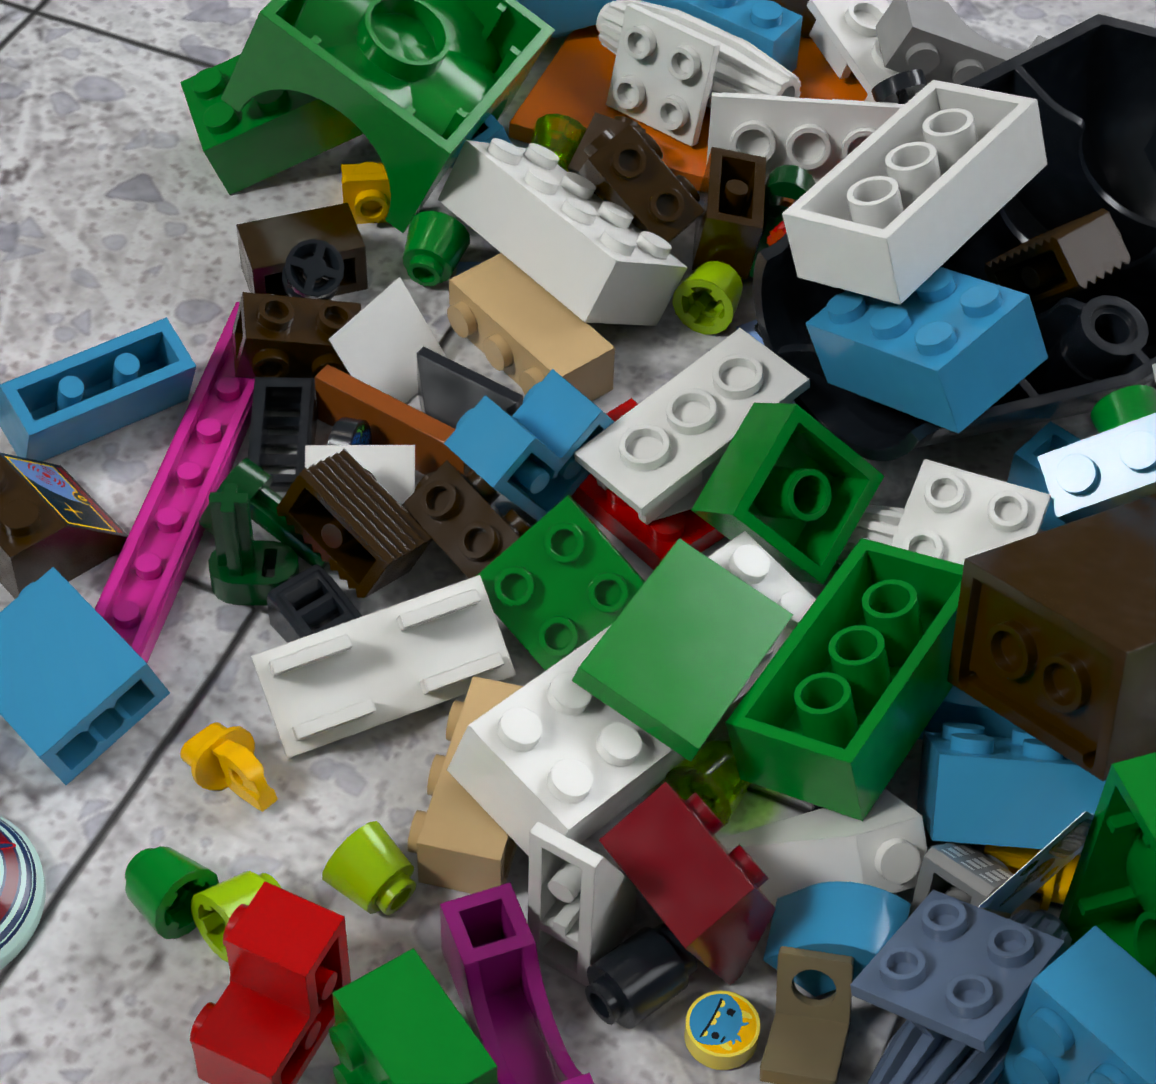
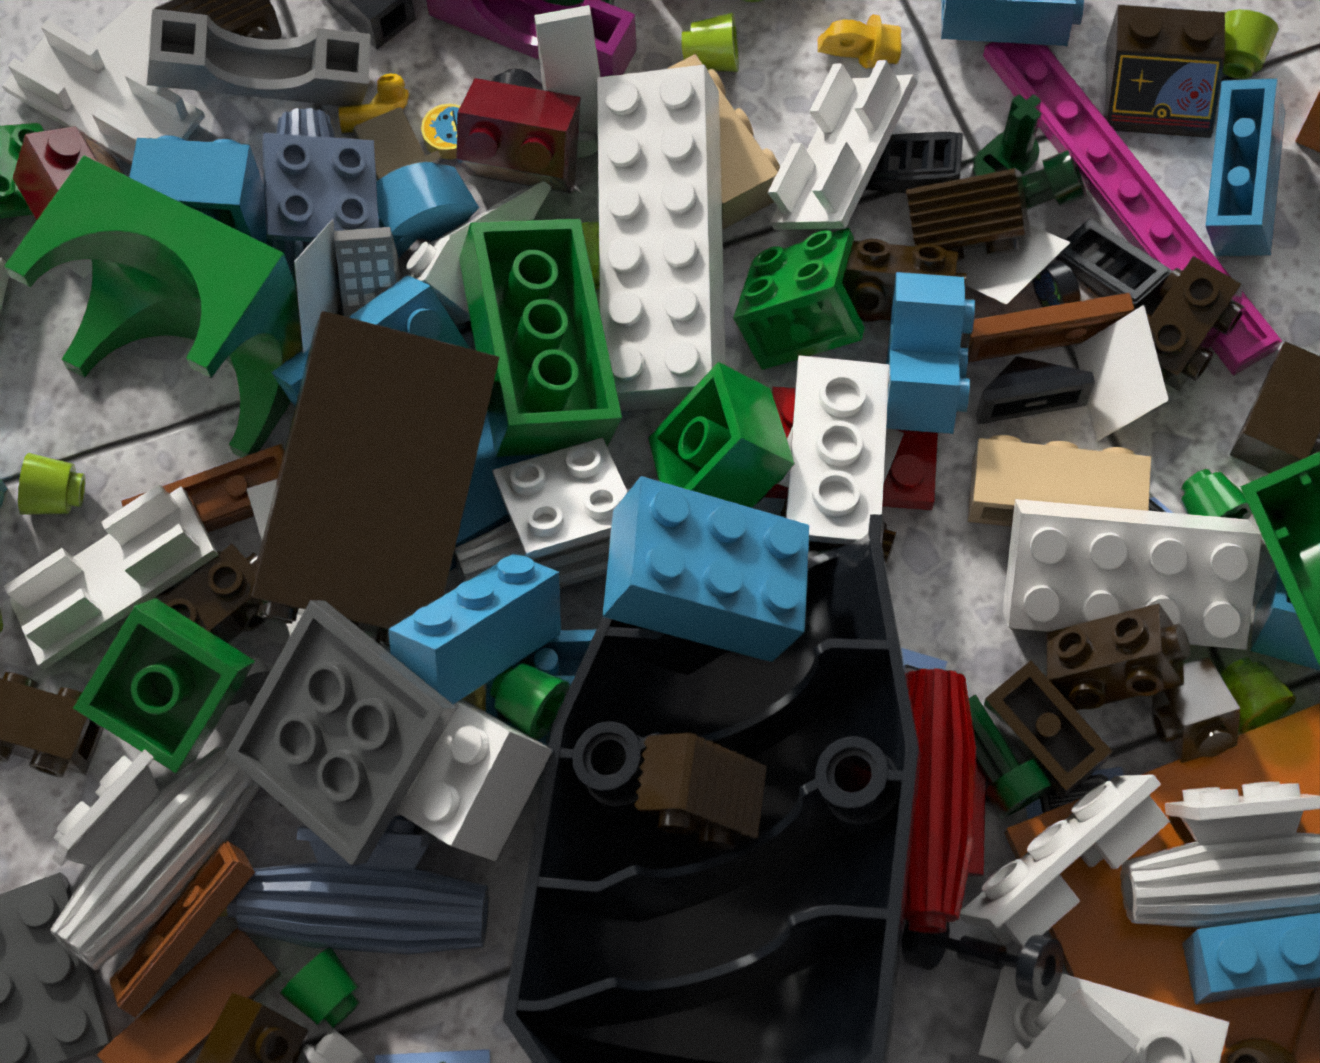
camera: 140 degrees right, 20 degrees up
(317, 261) = (1238, 367): black wheel -> none
(682, 649) = (646, 234): green tile -> none
(708, 298) = (982, 650): lime hat -> none
(915, 190) = (804, 624): white brick -> none

